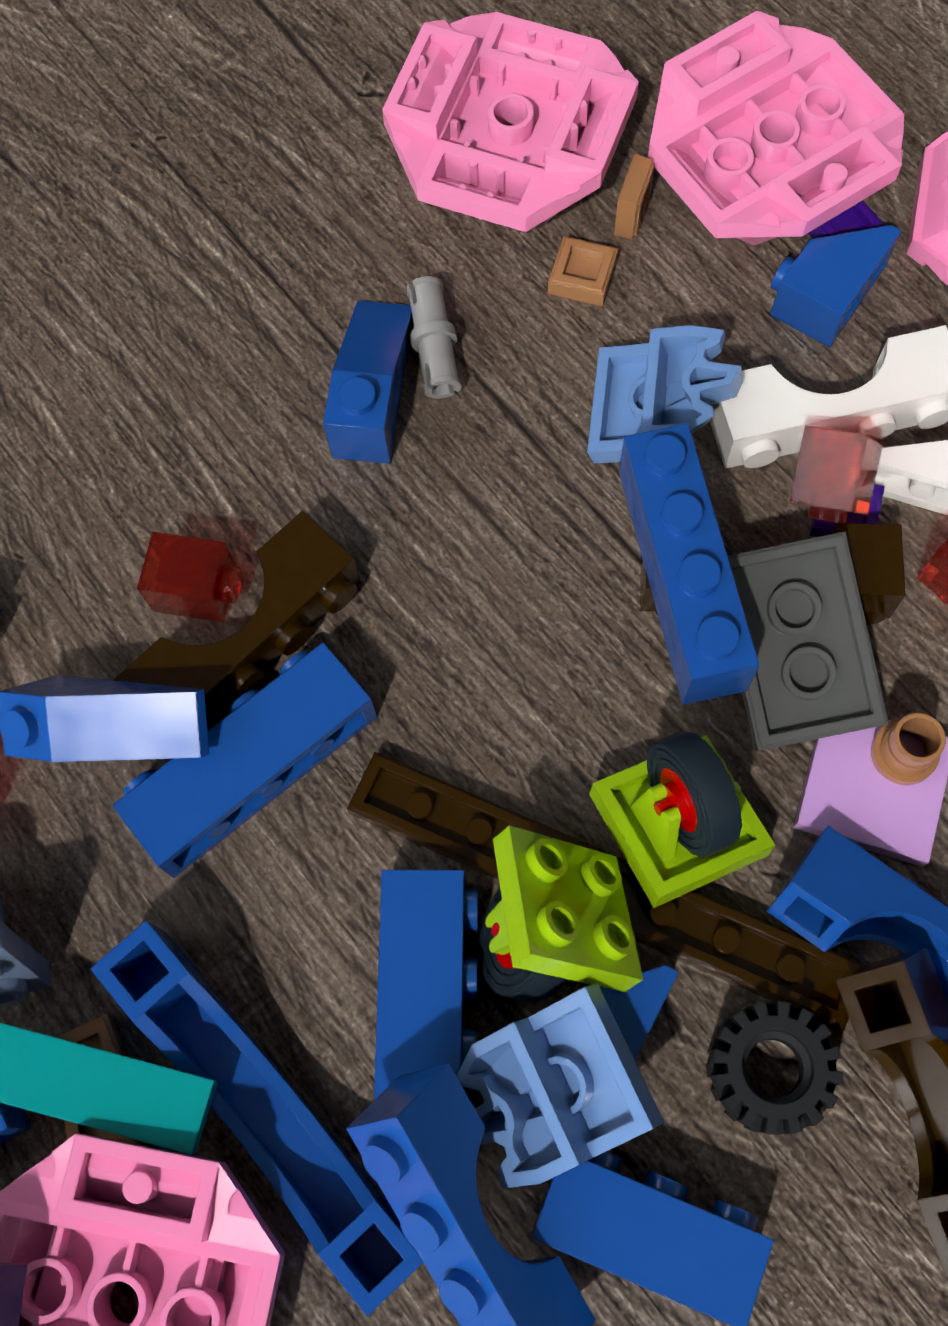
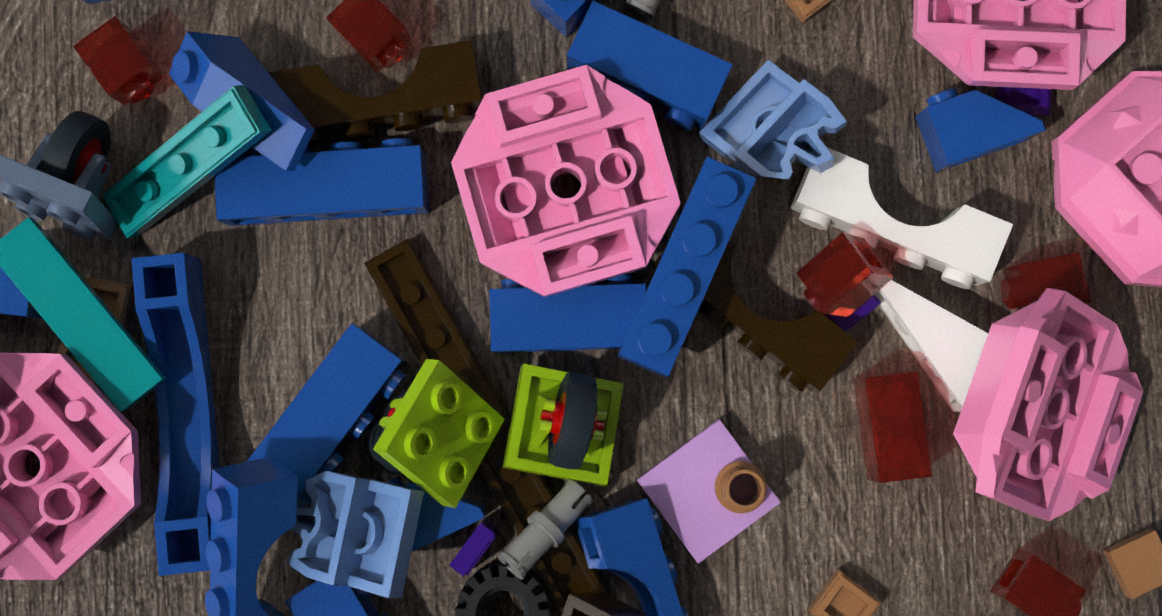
camera: 35 degrees right, 15 degrees up
(84, 827) = (186, 161): none -> teal tile
(484, 518) = (554, 128): none -> bright pink piece
(492, 427) = (650, 65): none -> blue brick
(592, 712) = (568, 321): none -> blue brick
(690, 1019) = (474, 548): none -> dark purple tile
(750, 939) = (545, 529): none -> light grey pin
(809, 643) = (727, 370): dark grey tile -> none

